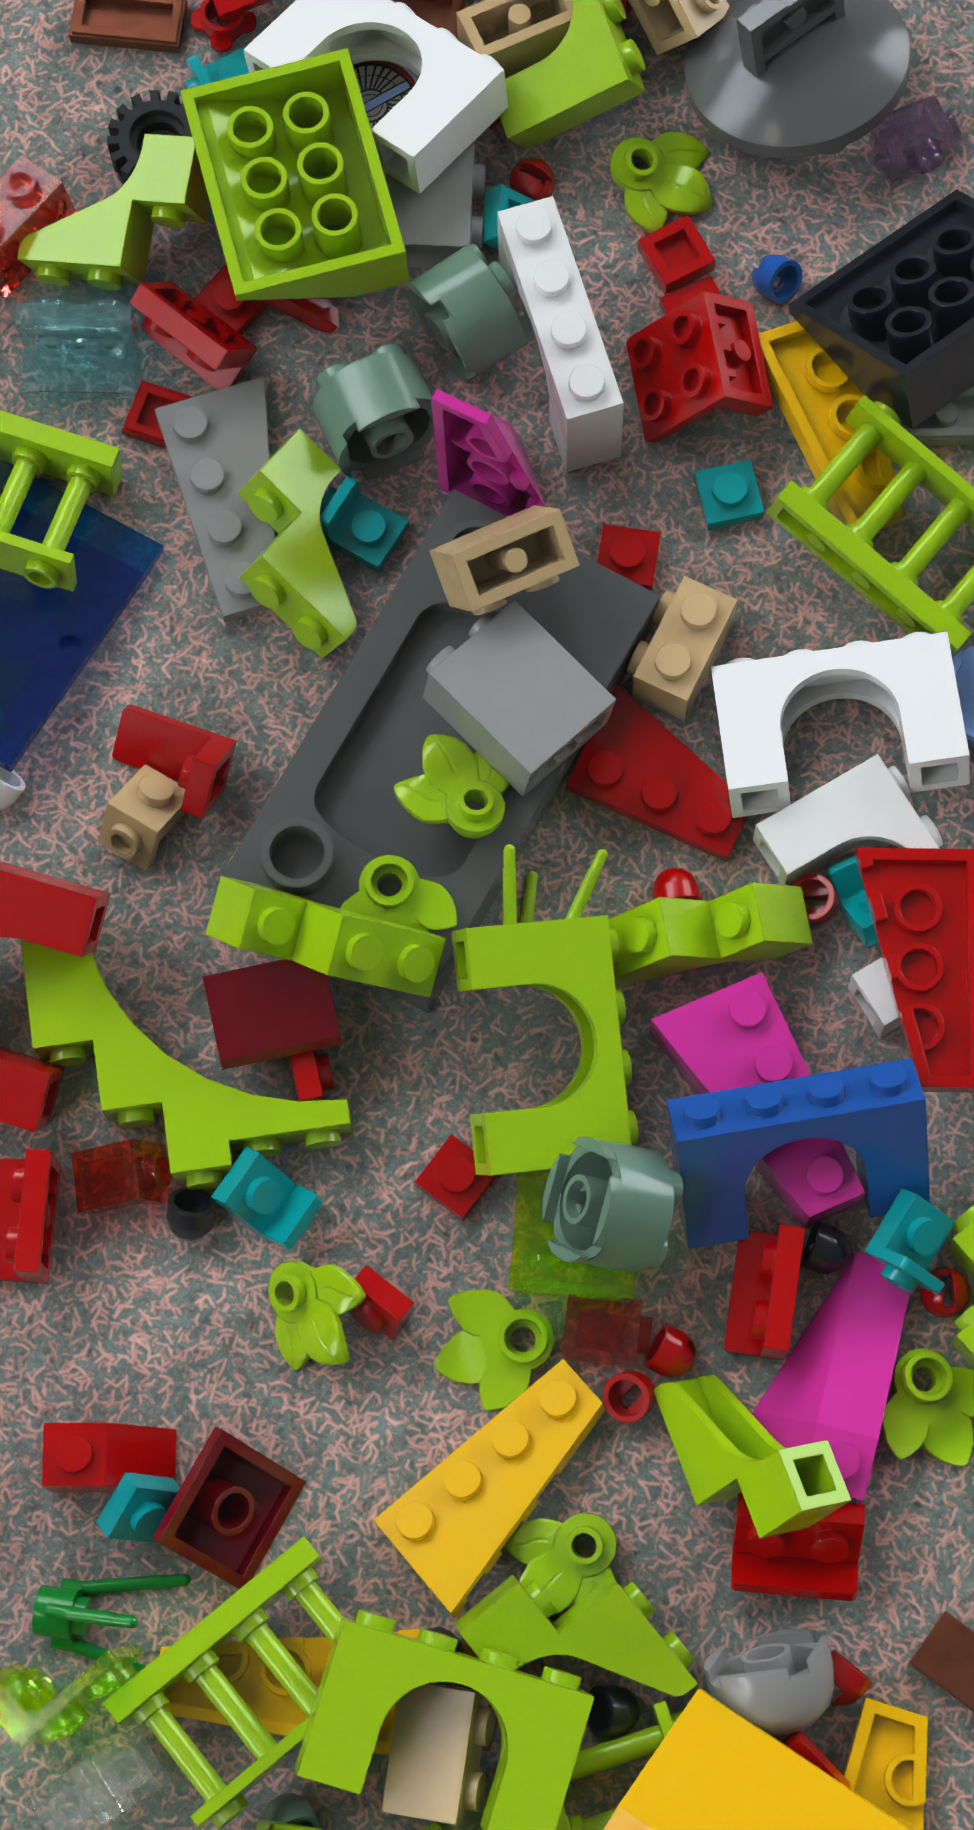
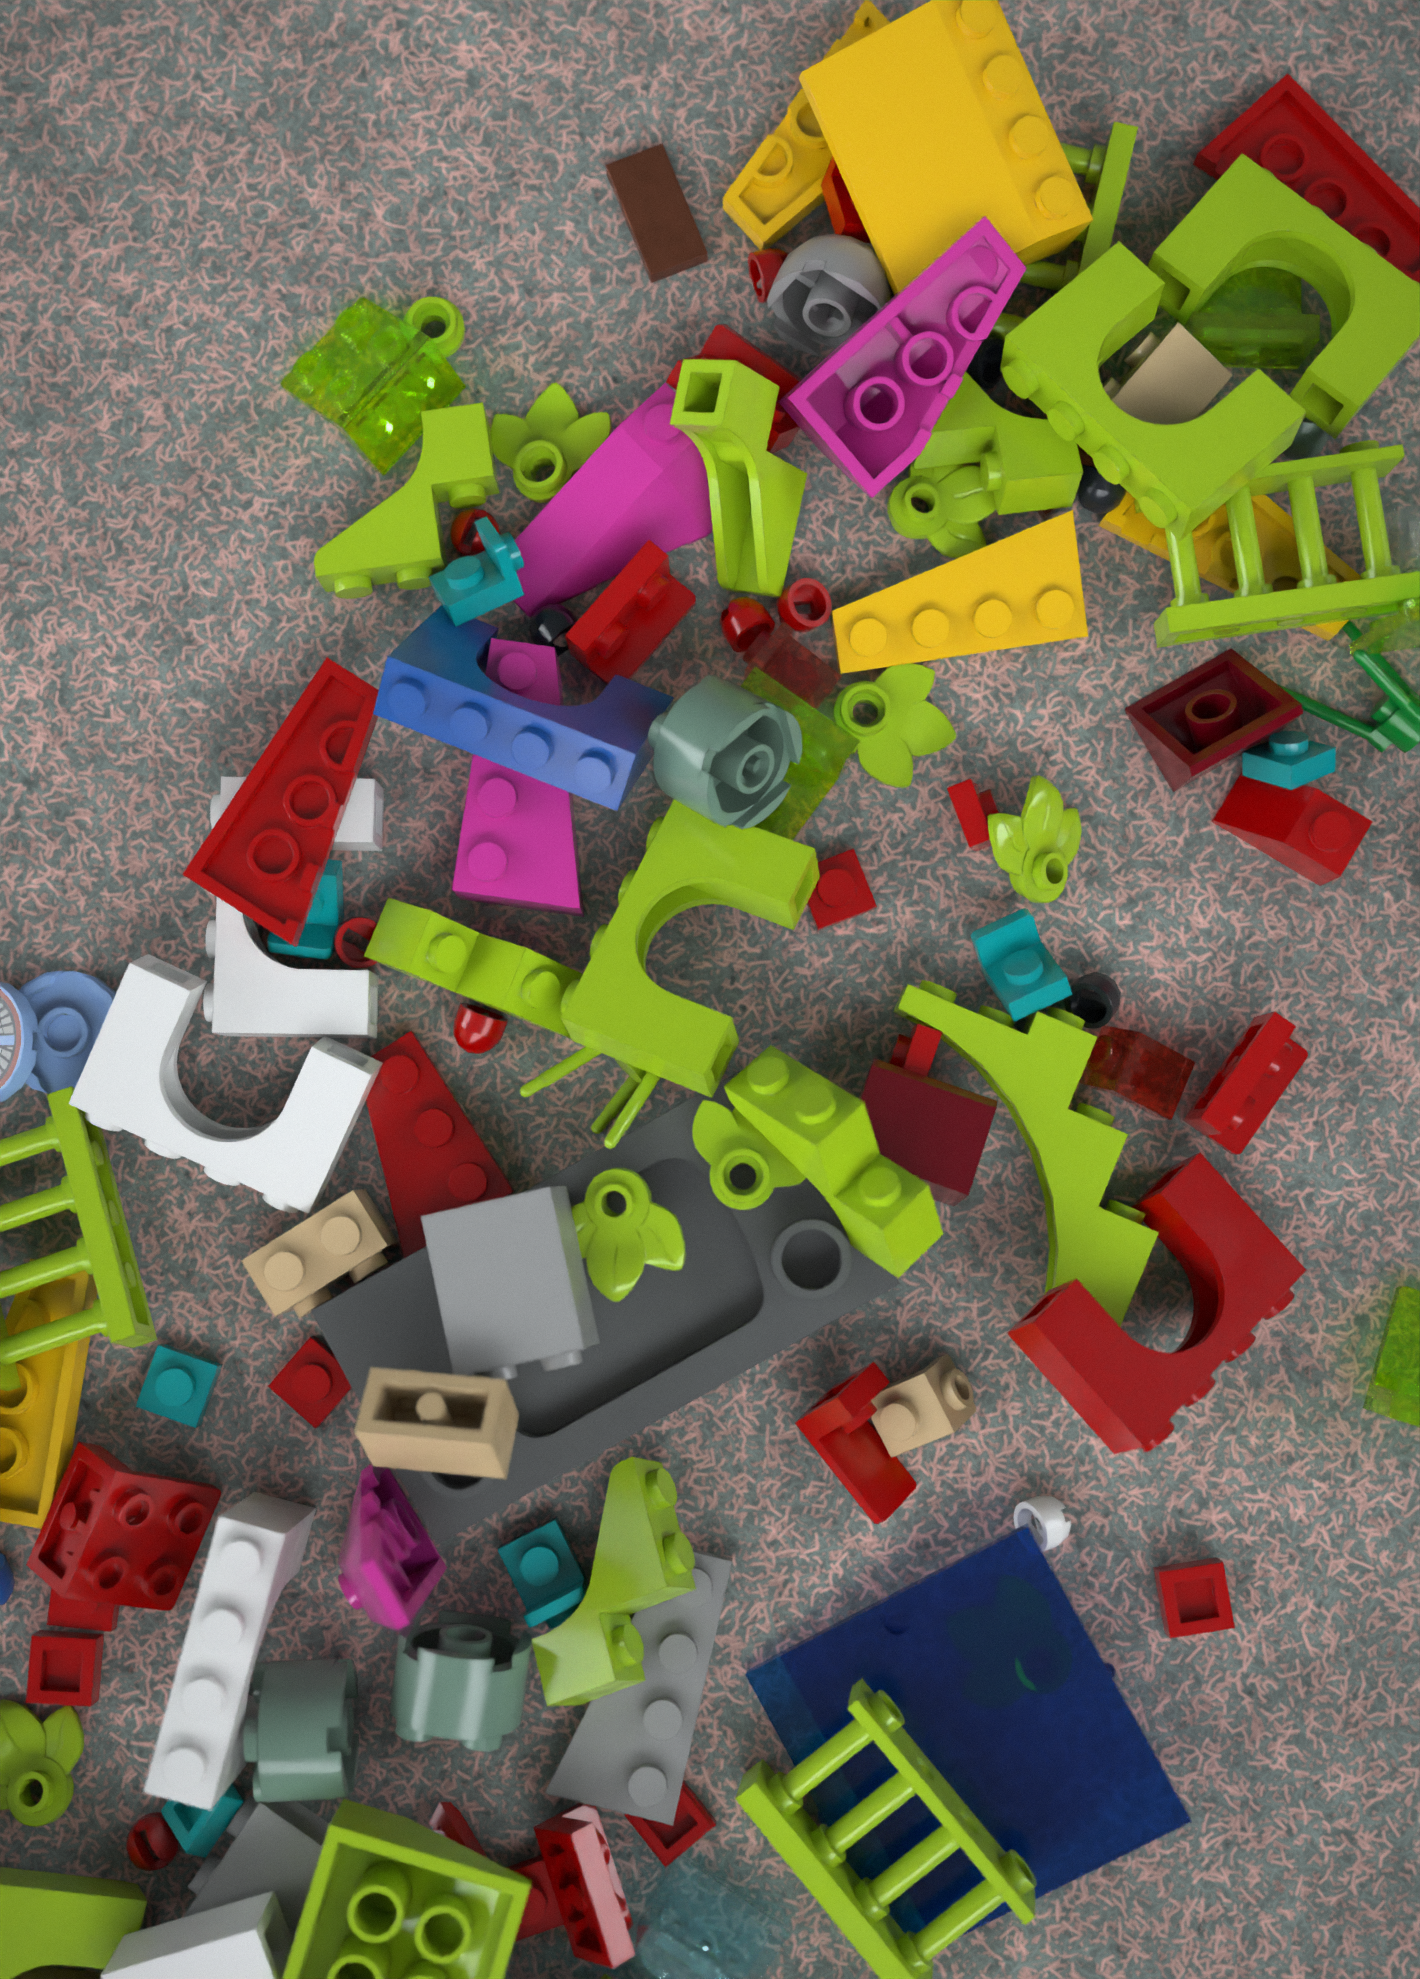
camera: 150 degrees left, 10 degrees up
(673, 1615) = (891, 379): none -> dark pink wedge

